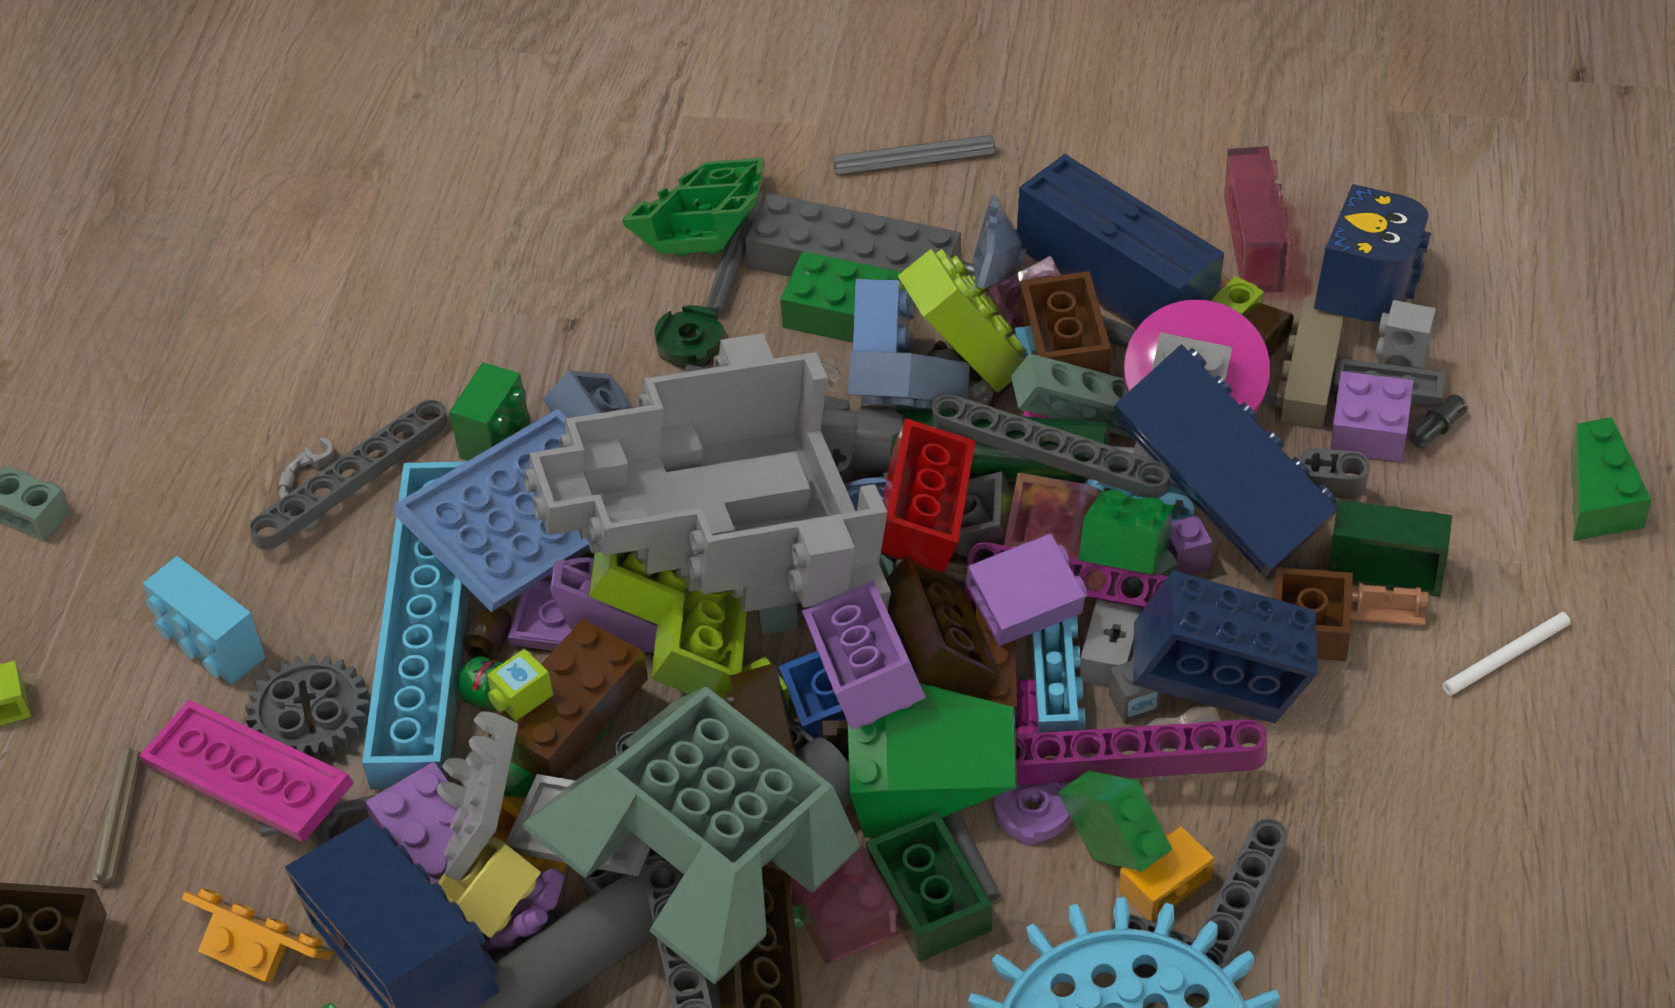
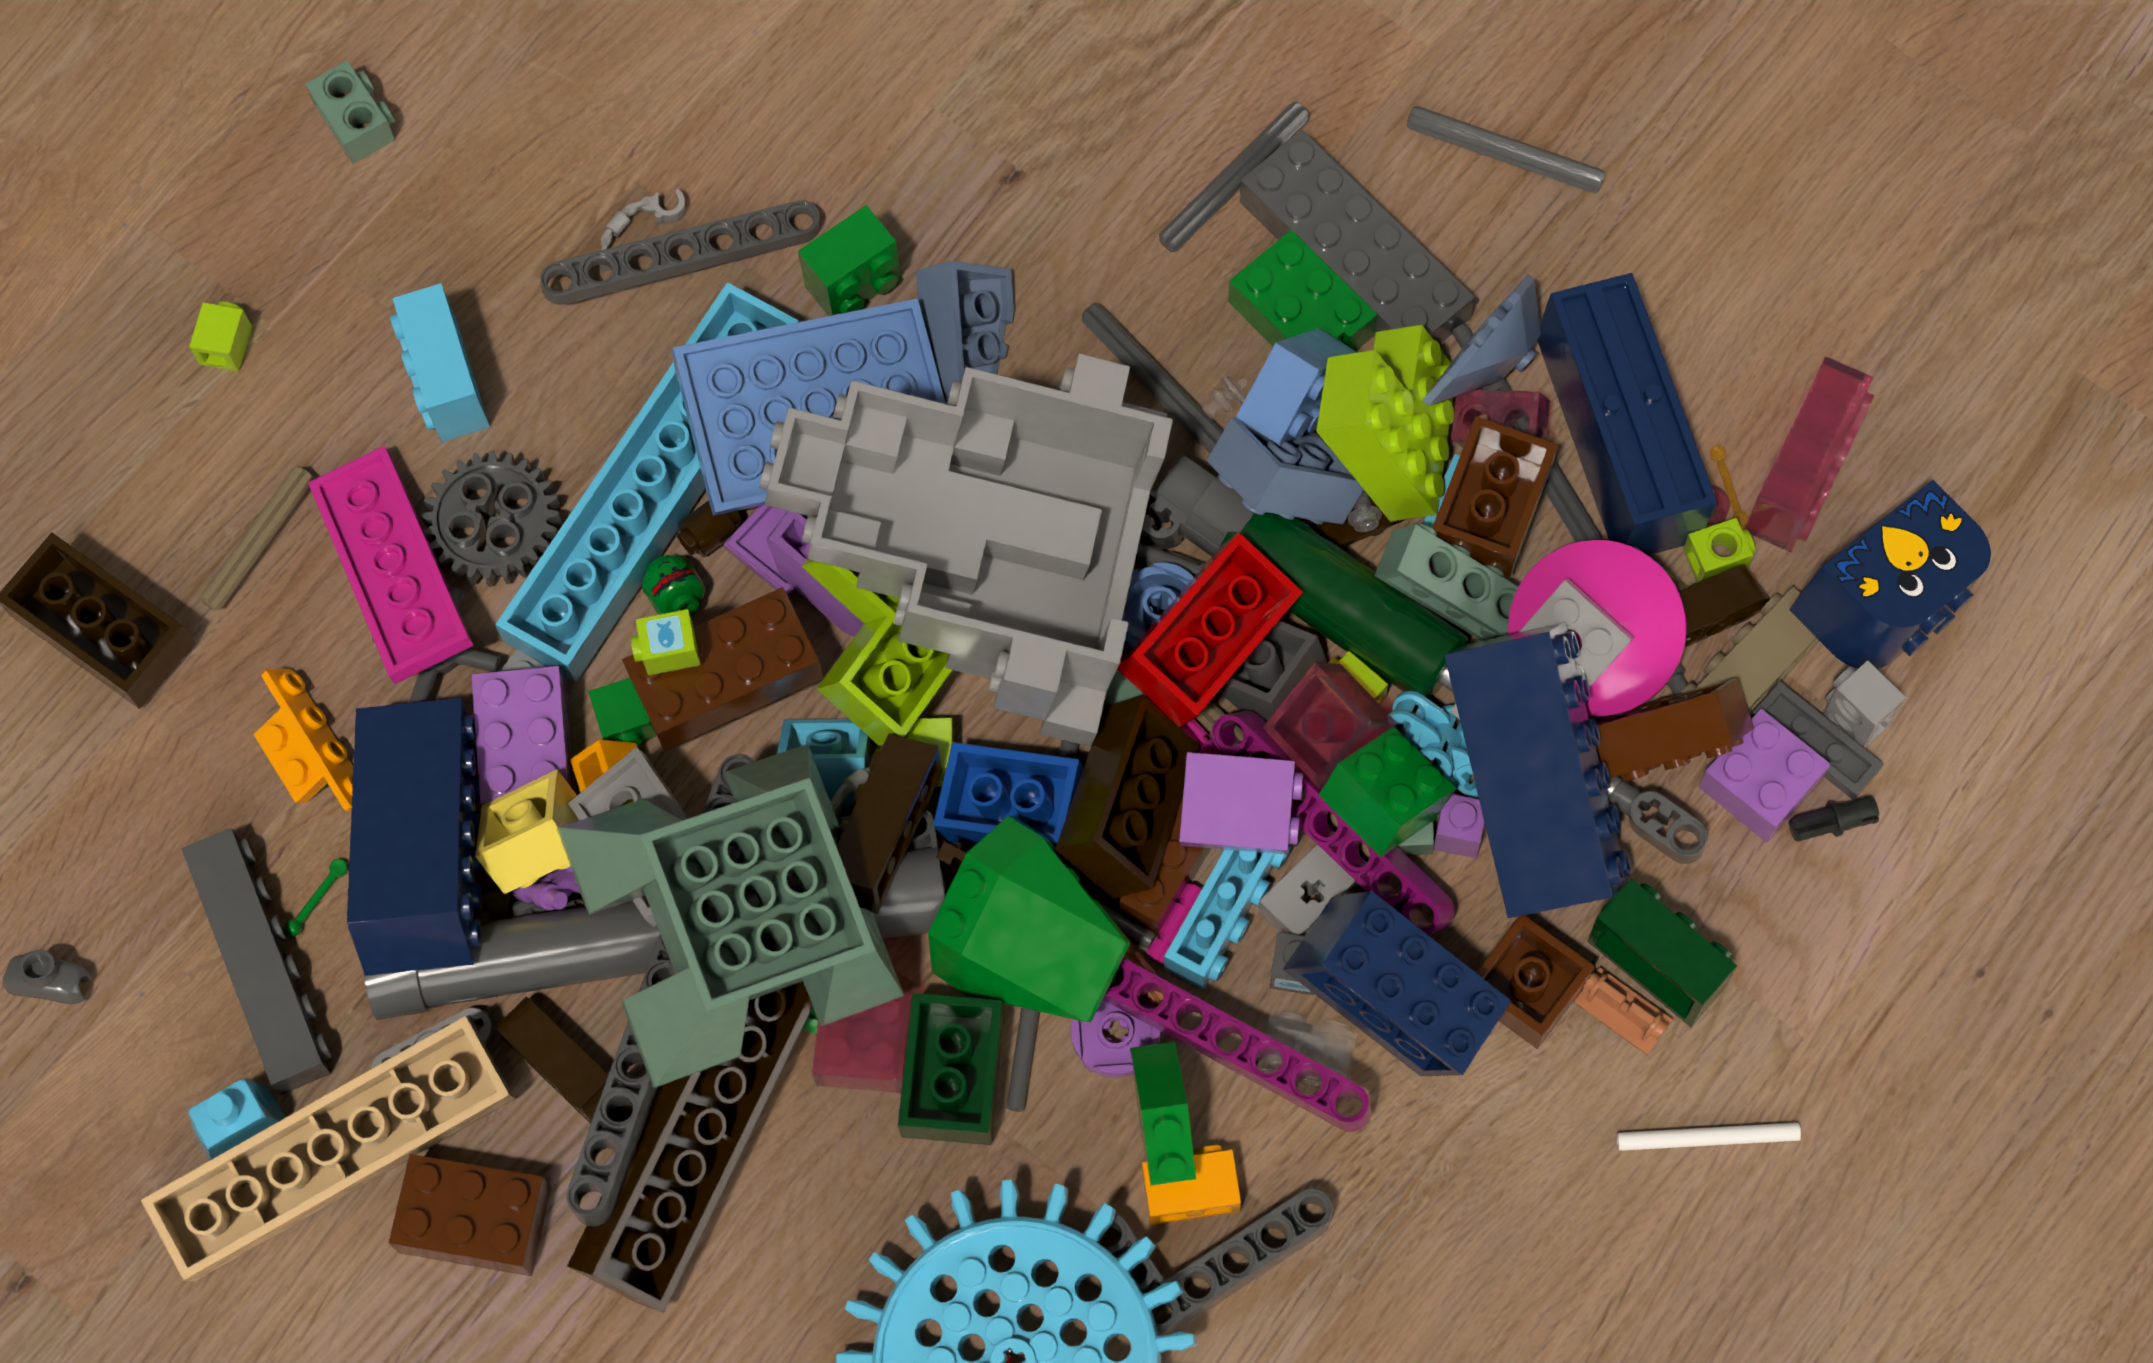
camera: 30 degrees right, 20 degrees up
(481, 798) = (571, 737): light grey hinge -> none
(694, 350) = (1114, 286): dark green plate -> none
(700, 211) = (1229, 103): green wedge -> none
(863, 655) = (1013, 801): medium lavender brick -> none
(1061, 457) = (1368, 621): dark grey beam -> none
(1301, 396) = (1675, 730): none -> reddish brown brick
(1605, 482) = (1955, 998): green wedge -> none

